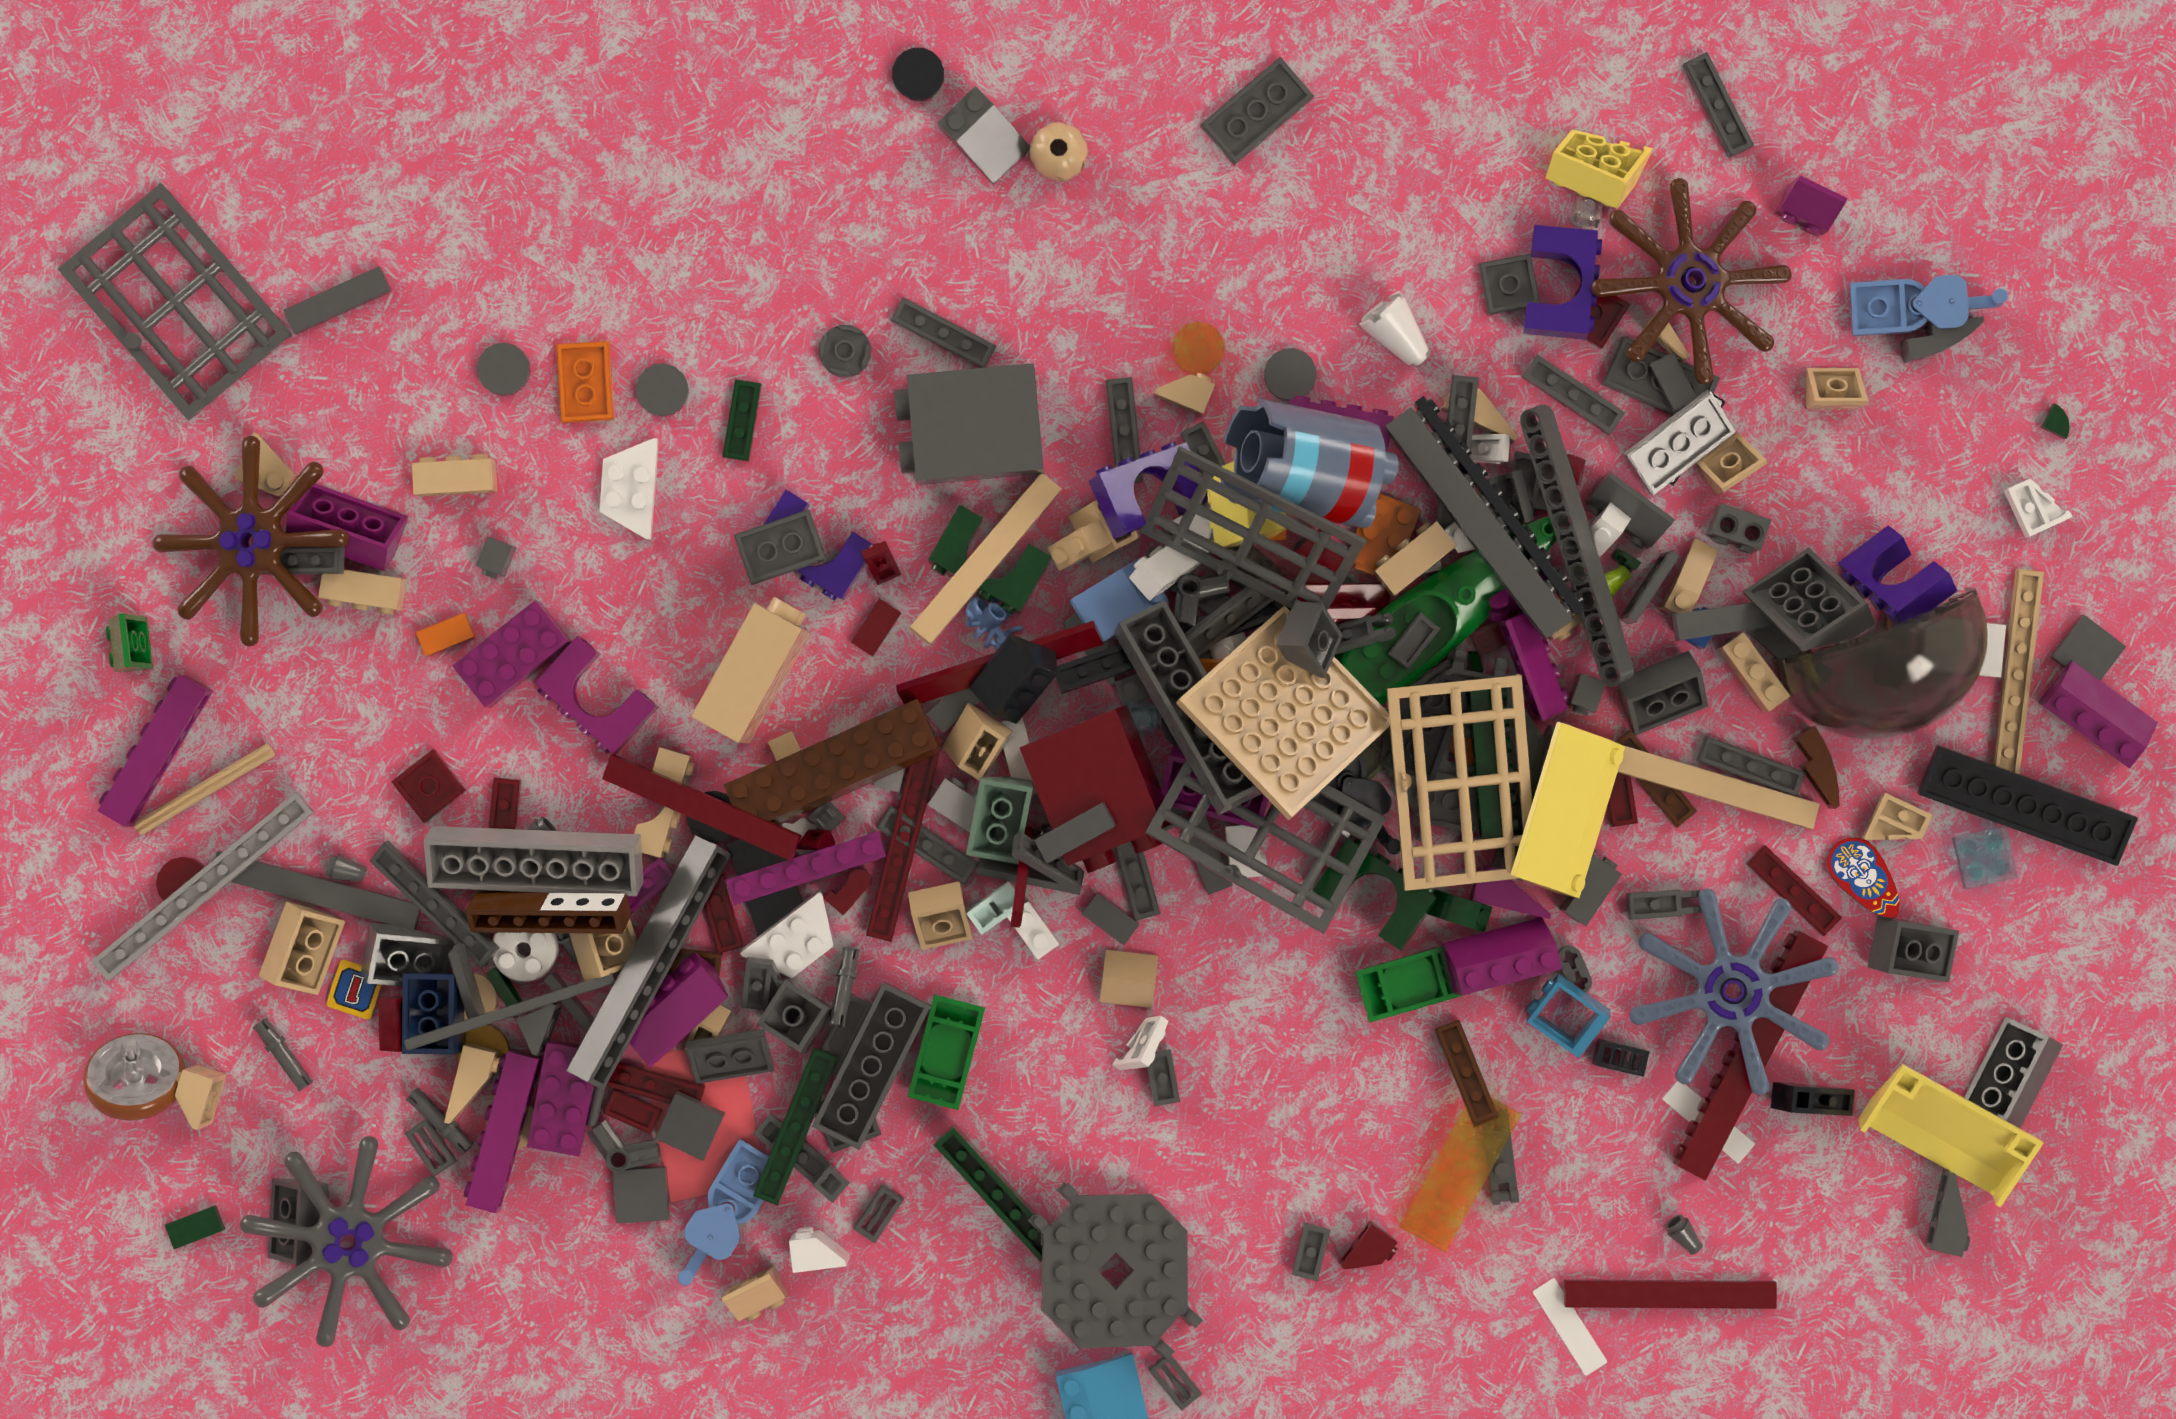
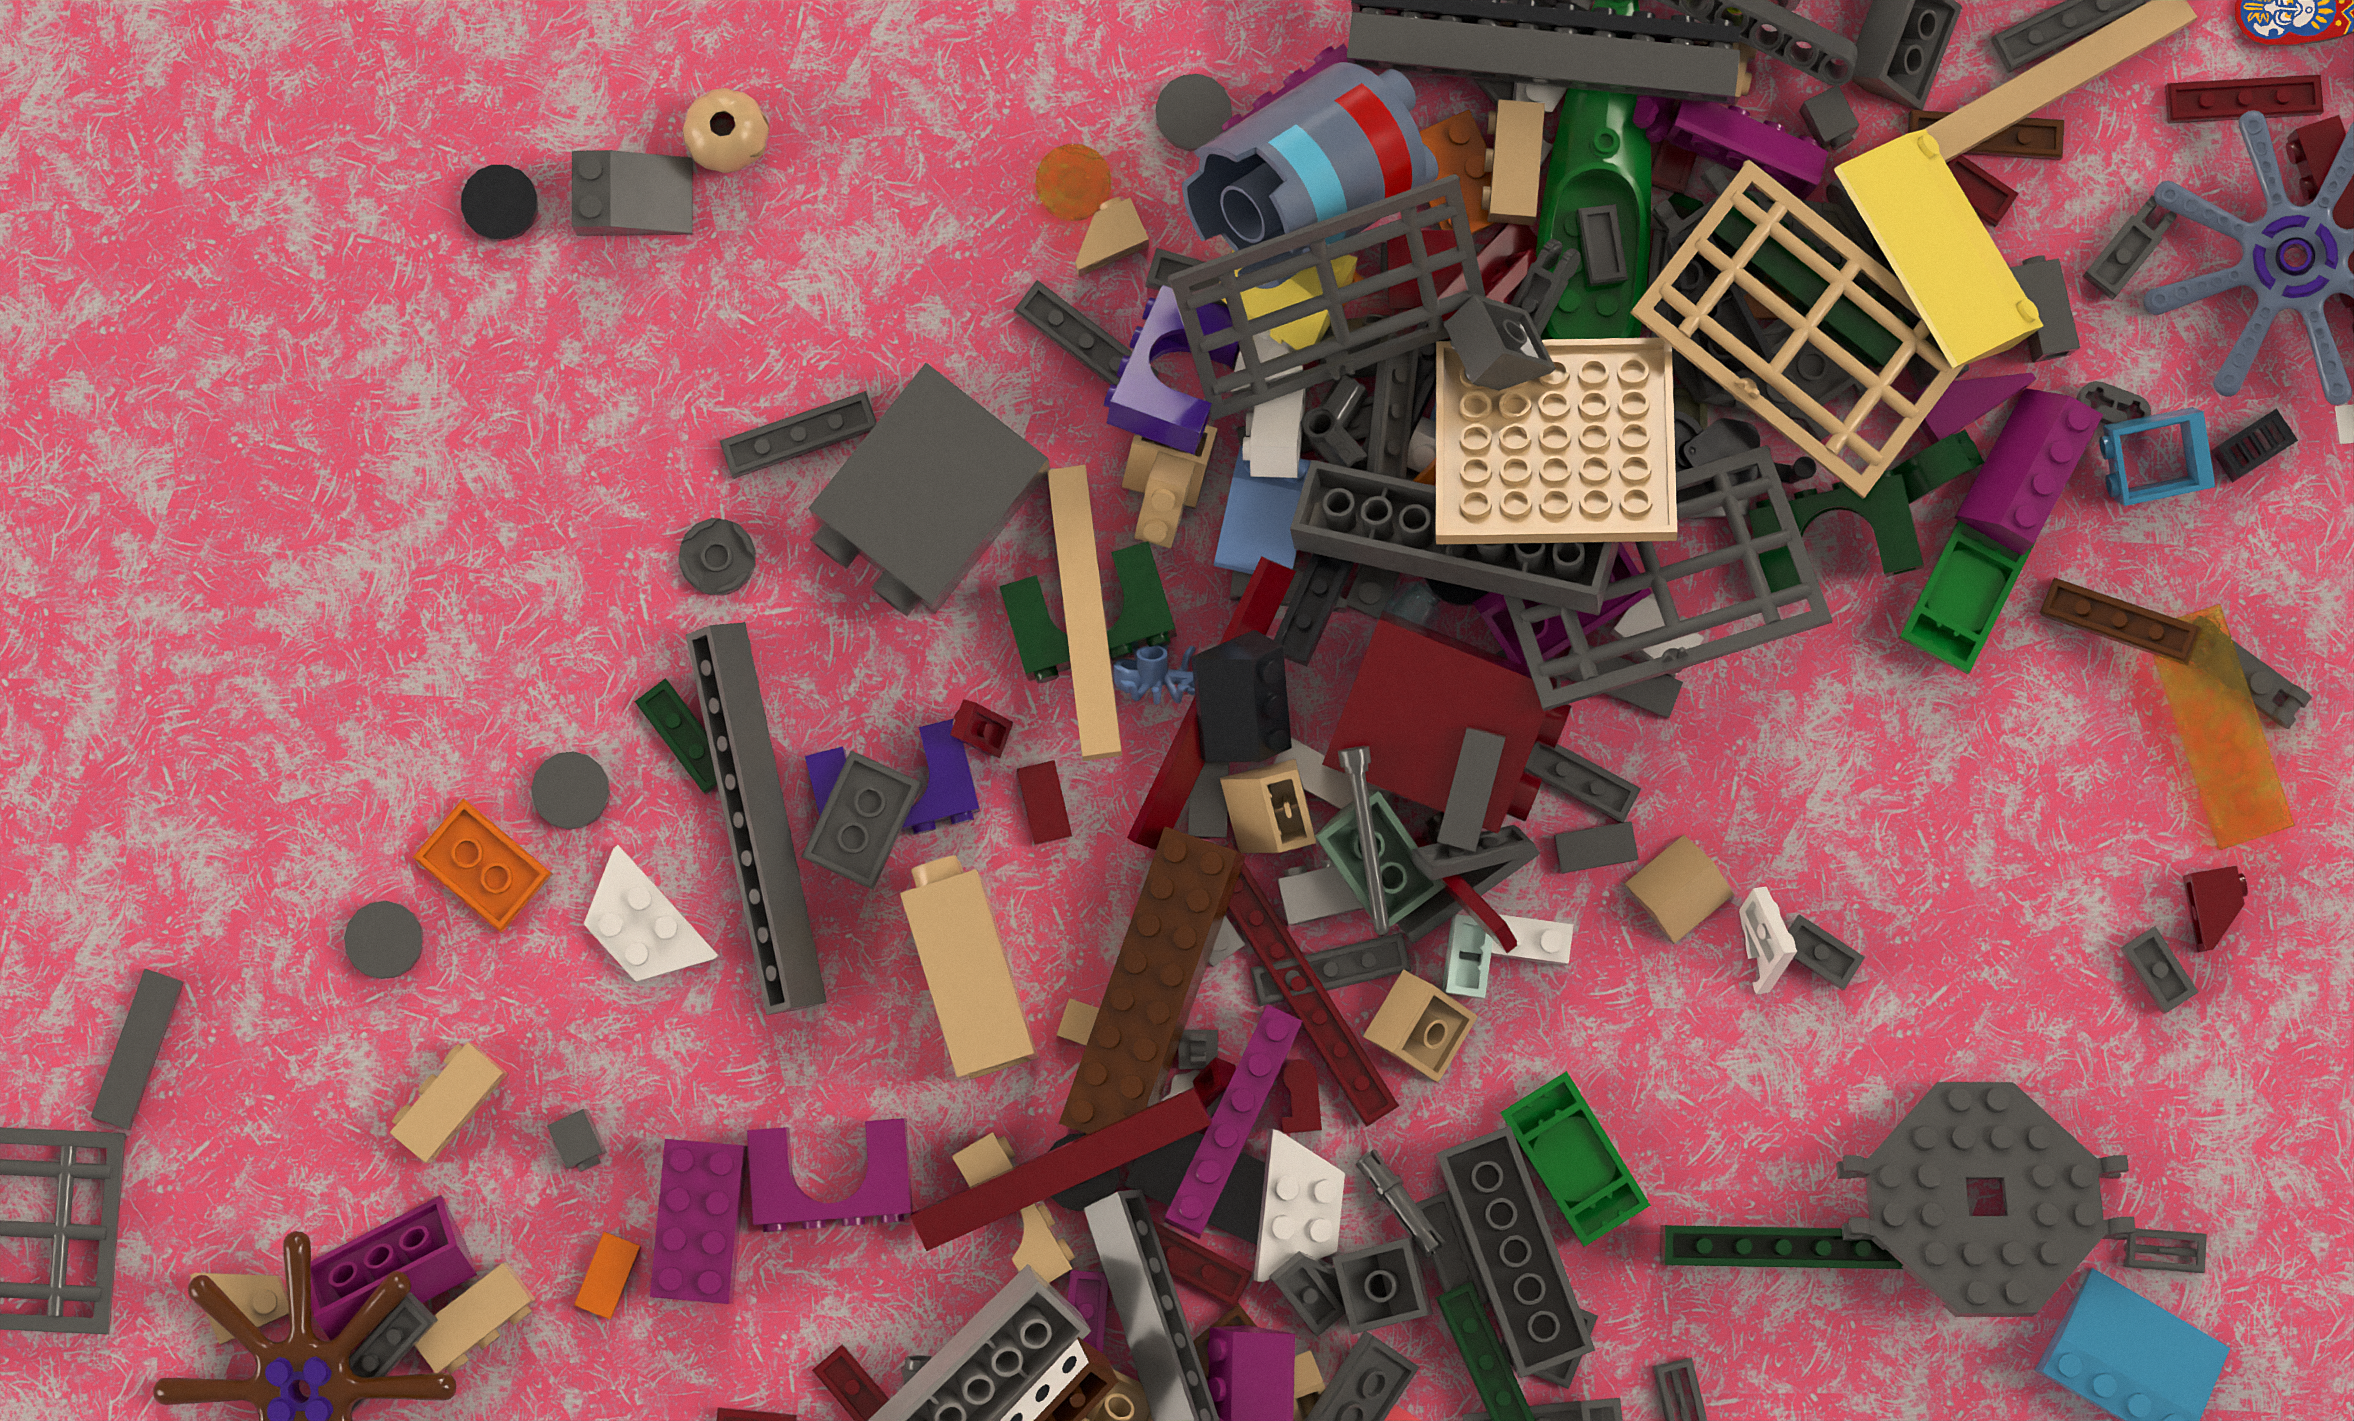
camera: 45 degrees left, 5 degrees down
(733, 493) = (755, 818): none -> dark grey brick
(1034, 763) = (1355, 762): none -> dark grey piece

